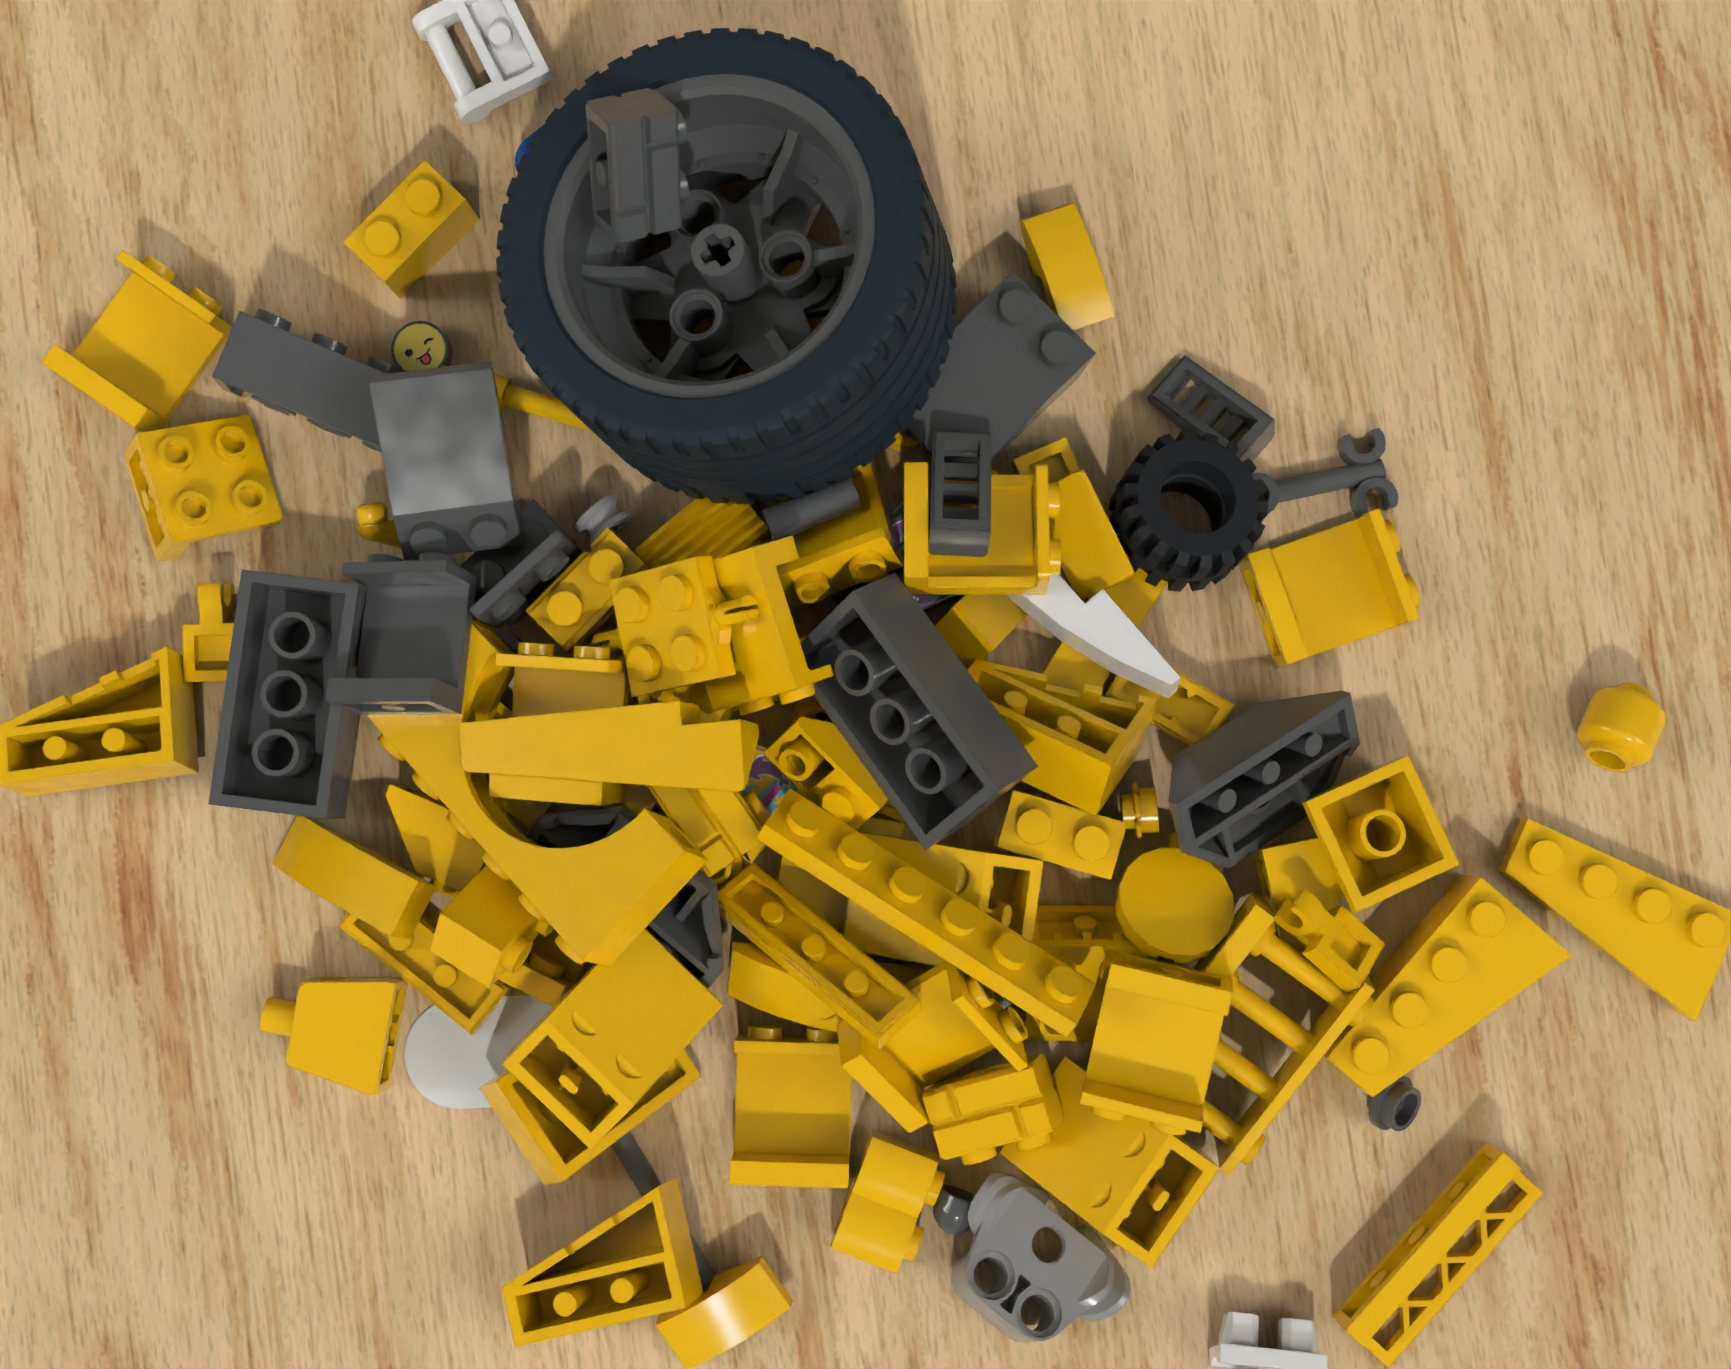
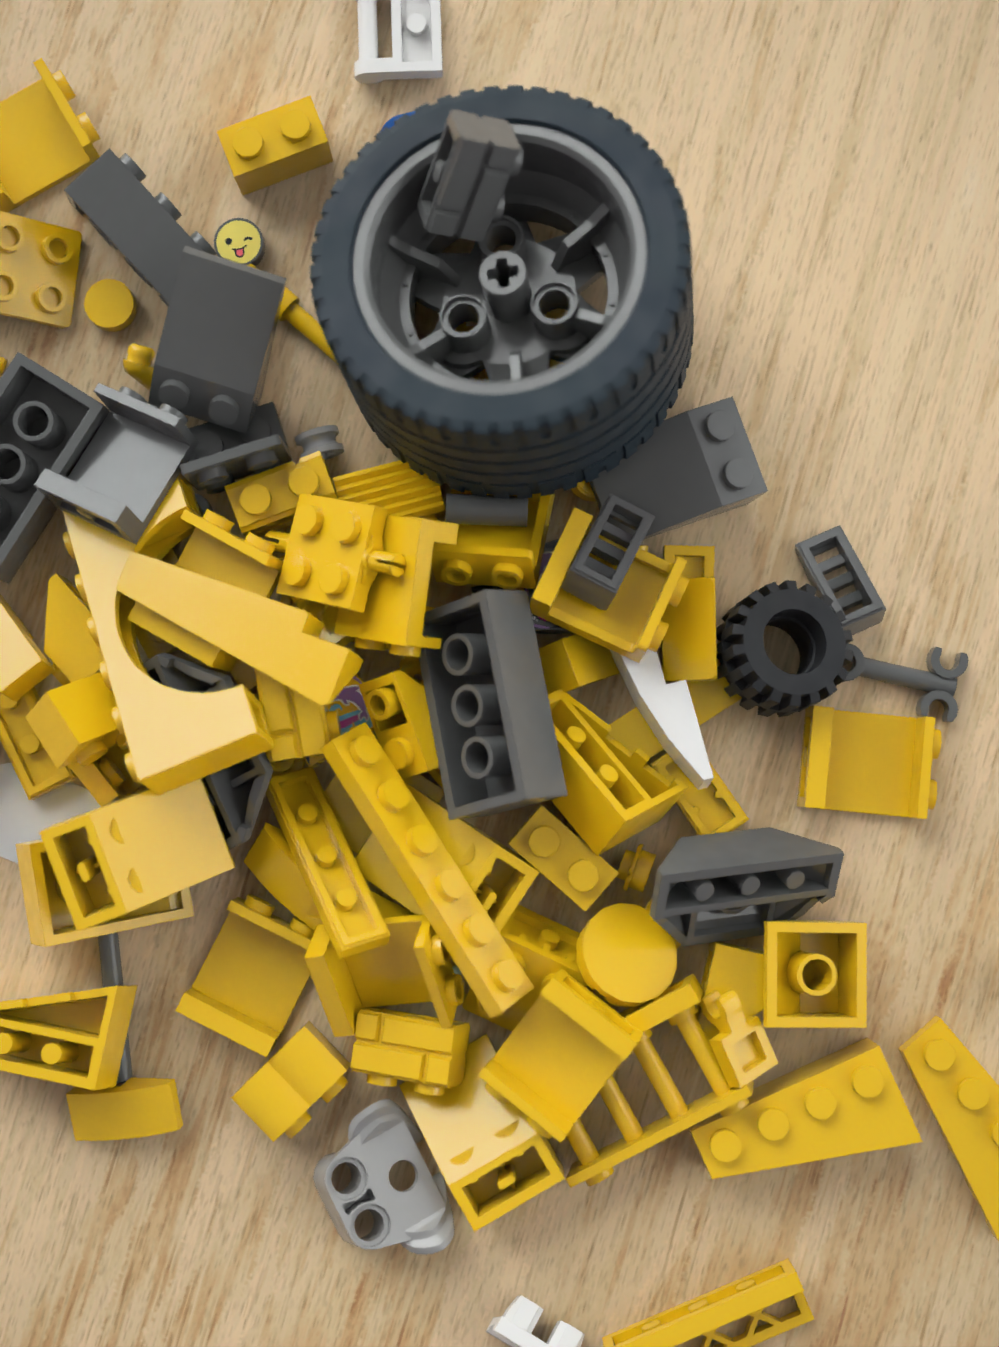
camera: 20 degrees right, 0 degrees up
(315, 476) = (110, 305): none -> yellow tile
(952, 1209) = (340, 1112): dark grey hinge -> none
(1067, 265) = (779, 412): yellow slope -> none
(1395, 1105) = (728, 1194): dark grey plate -> none

